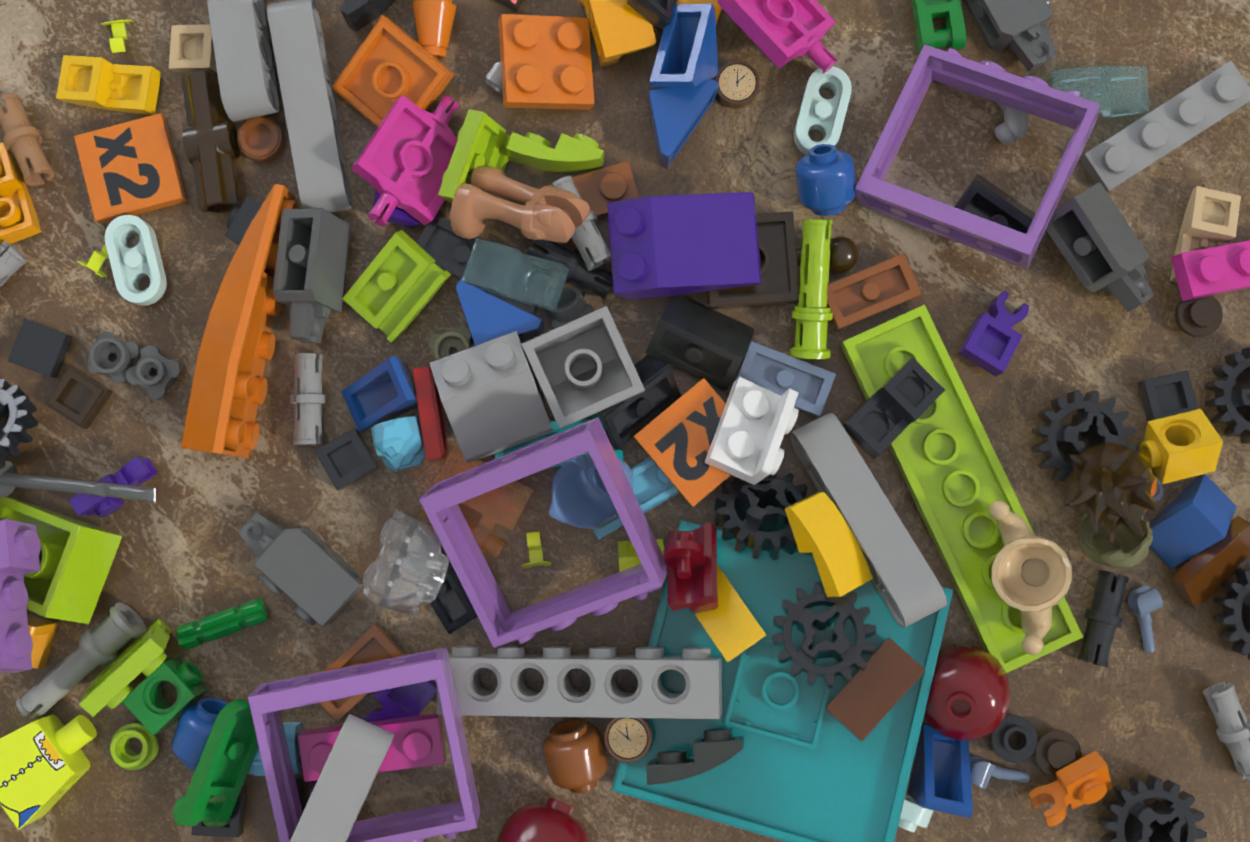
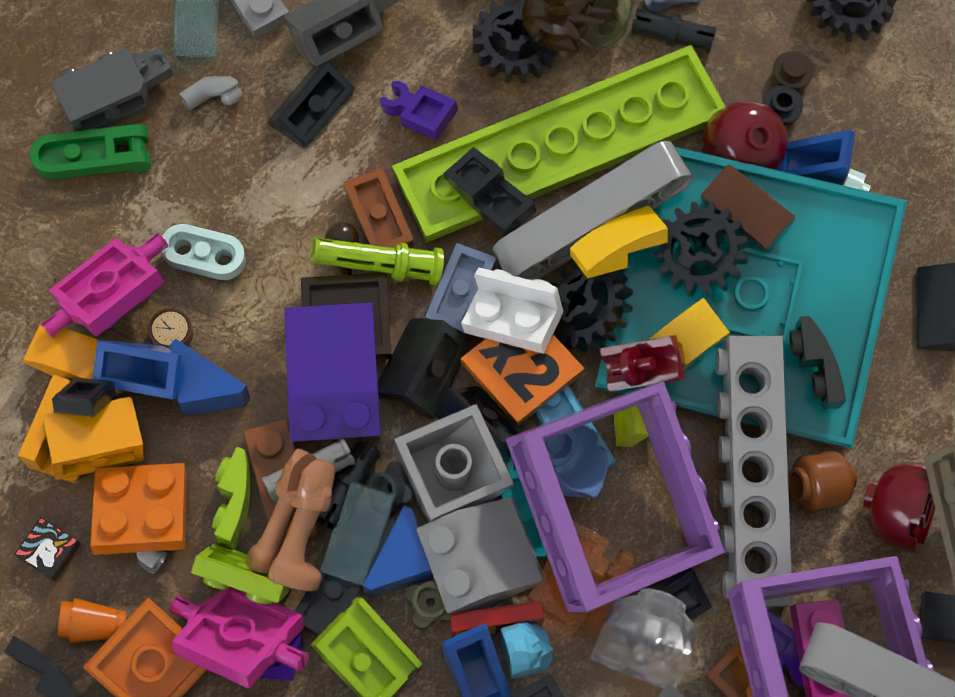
camera: 90 degrees left, 15 degrees down
(535, 551) = (627, 524): neon yellow piece -> none
(628, 738) = (804, 428): tile -> none
(825, 180) = (272, 247): blue head -> none
(983, 770) = (811, 127): sand blue hand -> none
(993, 83) = (200, 73): medium lavender window -> none
(1029, 574) = (640, 79): tan piece -> none
(1076, 785) = (818, 53): orange plate -> none

